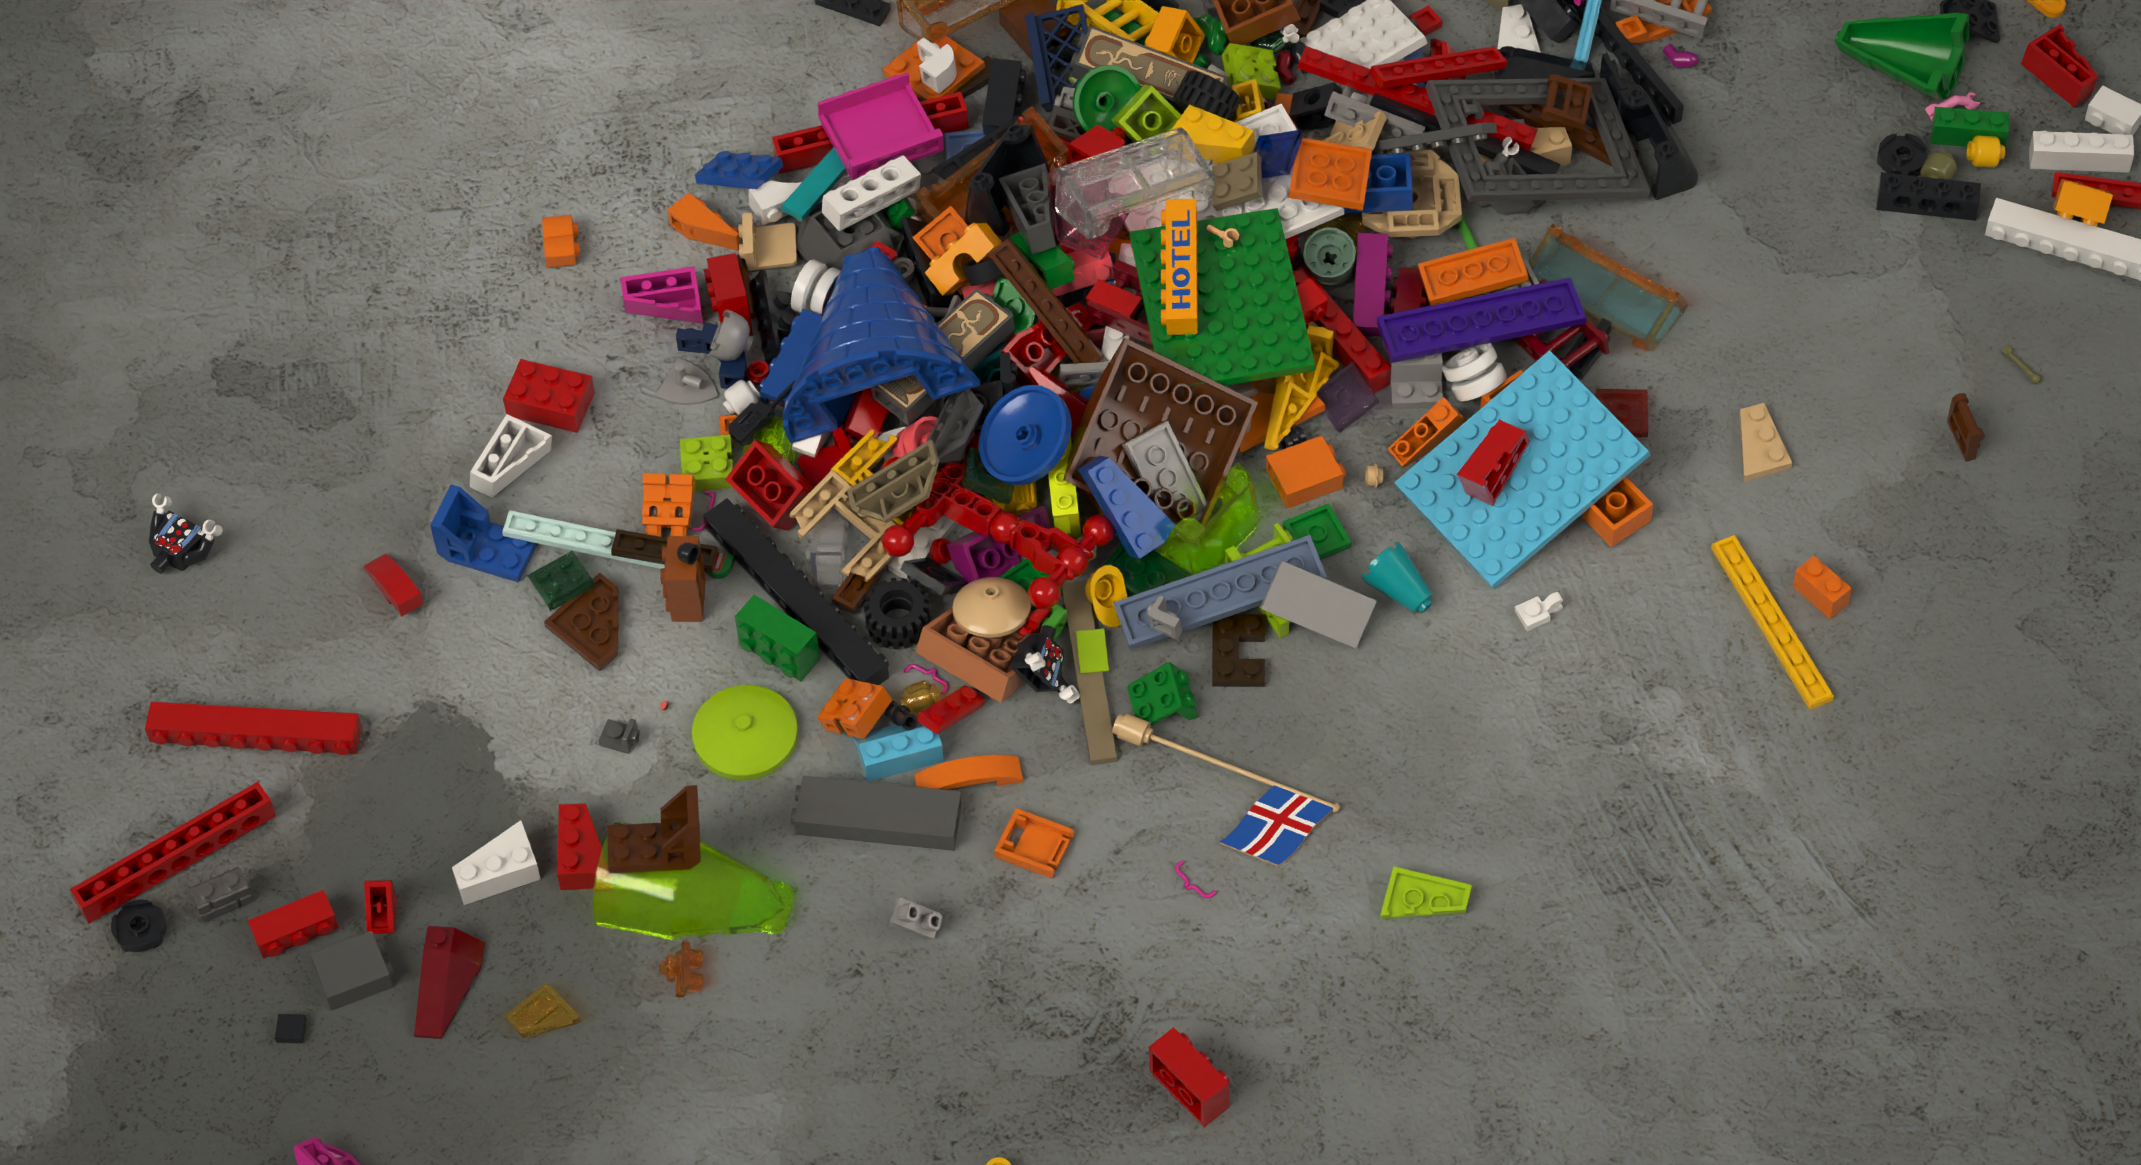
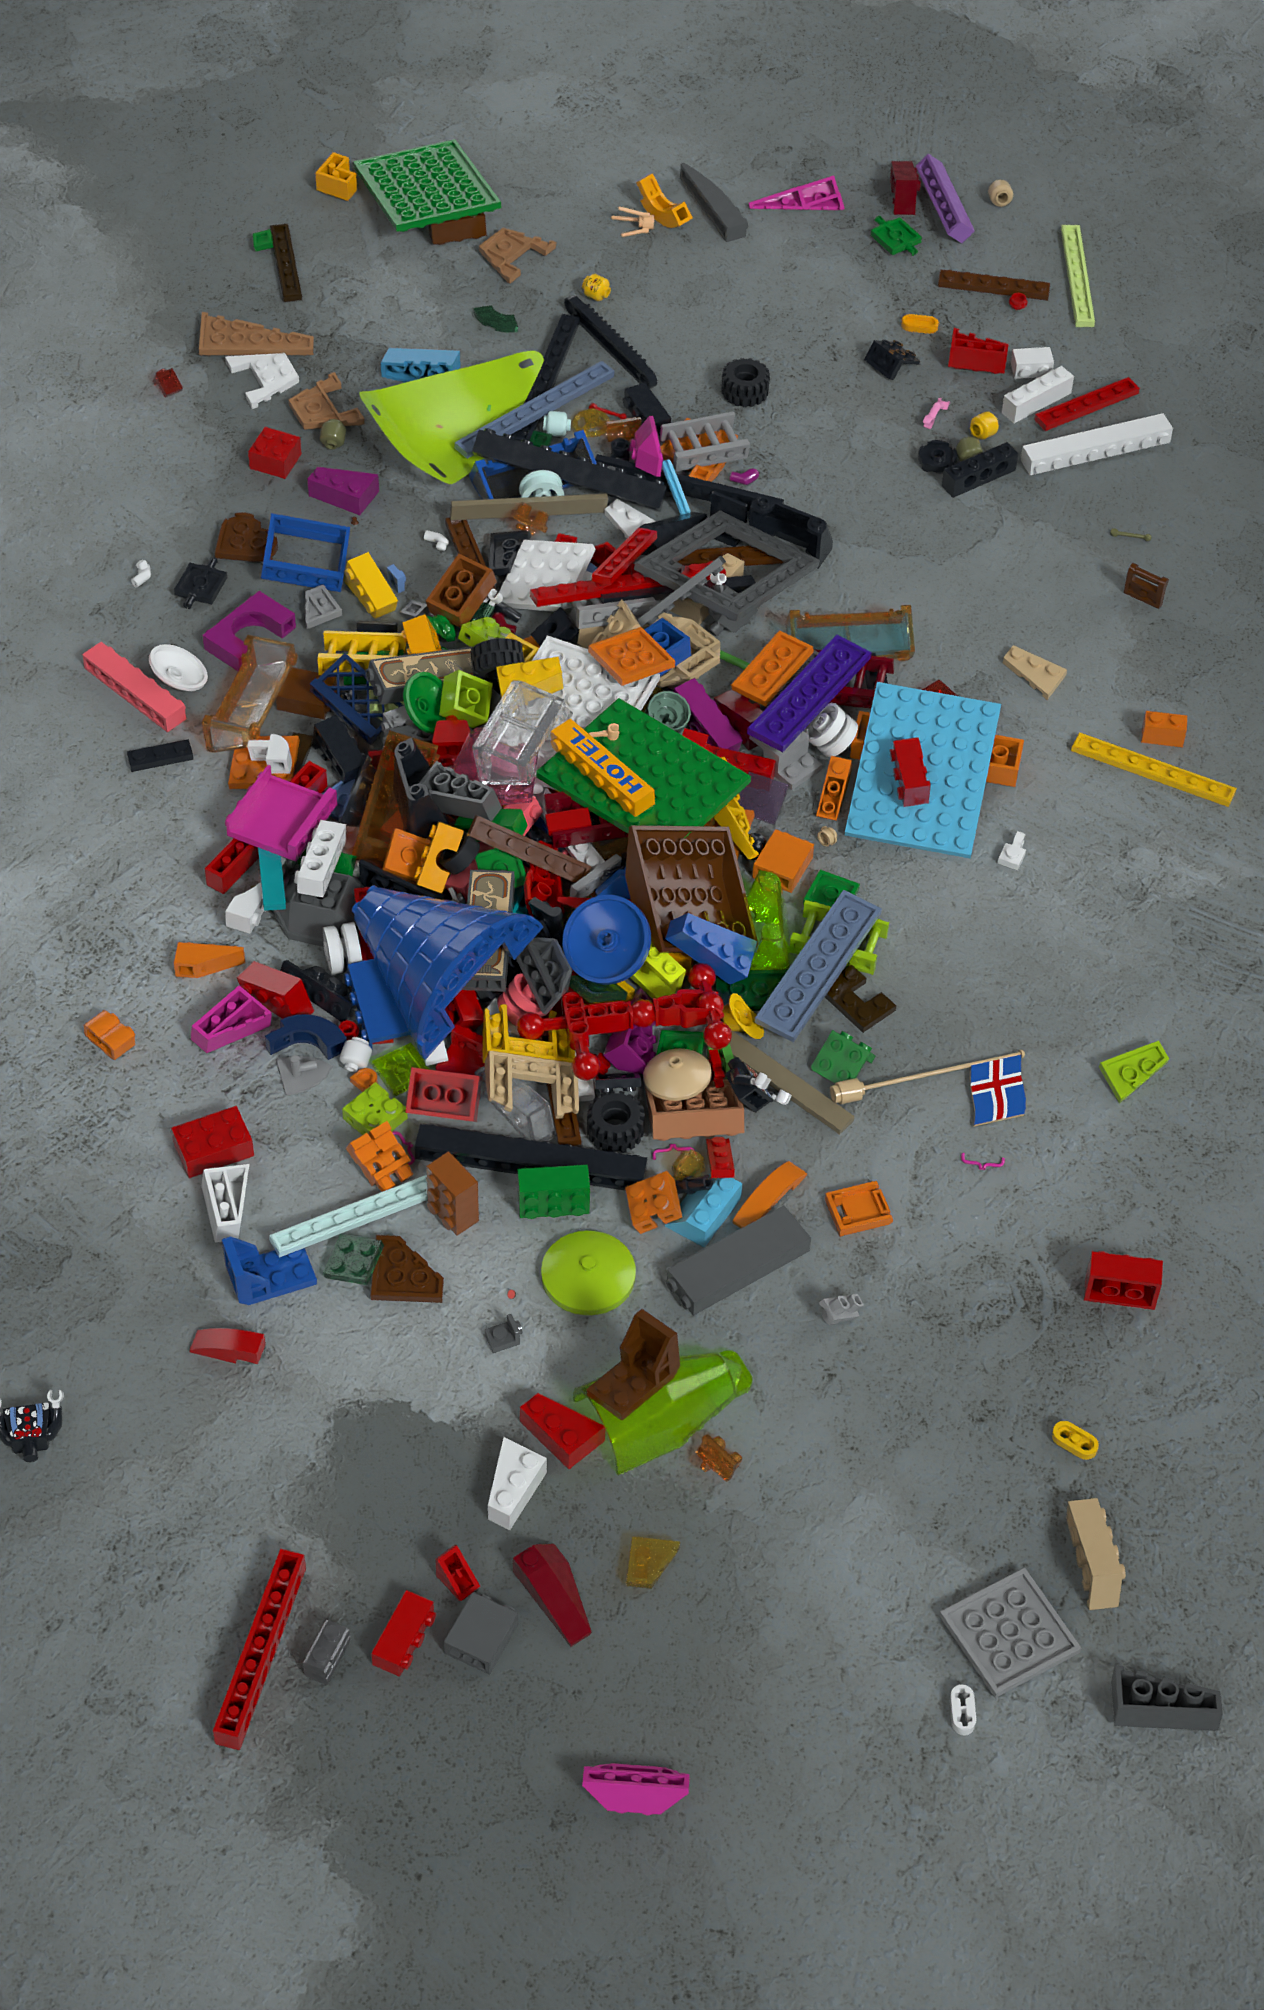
camera: 45 degrees left, 5 degrees down
(139, 940) = (283, 1708): black plate -> none
(253, 728) = (225, 1518): red brick -> none
(290, 1028) = (475, 1708): black tile -> none
(649, 548) = (396, 1194): dark brown tile -> none
(688, 553) = (455, 1165): black hinge -> none
(731, 337) = (316, 1014): light grey cylinder -> none
(738, 170) = (199, 905): blue plate -> none
(754, 419) = (386, 1057): black piece -> none
(767, 245) = (268, 943): tan bracket -> none
(897, 485) = (554, 1027): dark tan wedge -> none
(1092, 651) = (767, 1060): lime sticker -> none
(1162, 462) = (696, 900): light grey tile -> none
(1163, 620) = (806, 1005): light grey bracket -> none
(1237, 181) = (578, 695): dark tan plate -> none
(1278, 152) = (583, 666): clear blue tile -> none
(1318, 604) = (889, 930): light grey tile -> none
(1399, 579) = (915, 886): teal cone -> none
(1574, 103) = (726, 529): reddish brown plate -> none
(1911, 49) = (881, 391): green cone -> none
(1960, 126) = (957, 418): green brick -> none
(2083, 202) = (1075, 418): light orange brick -> none

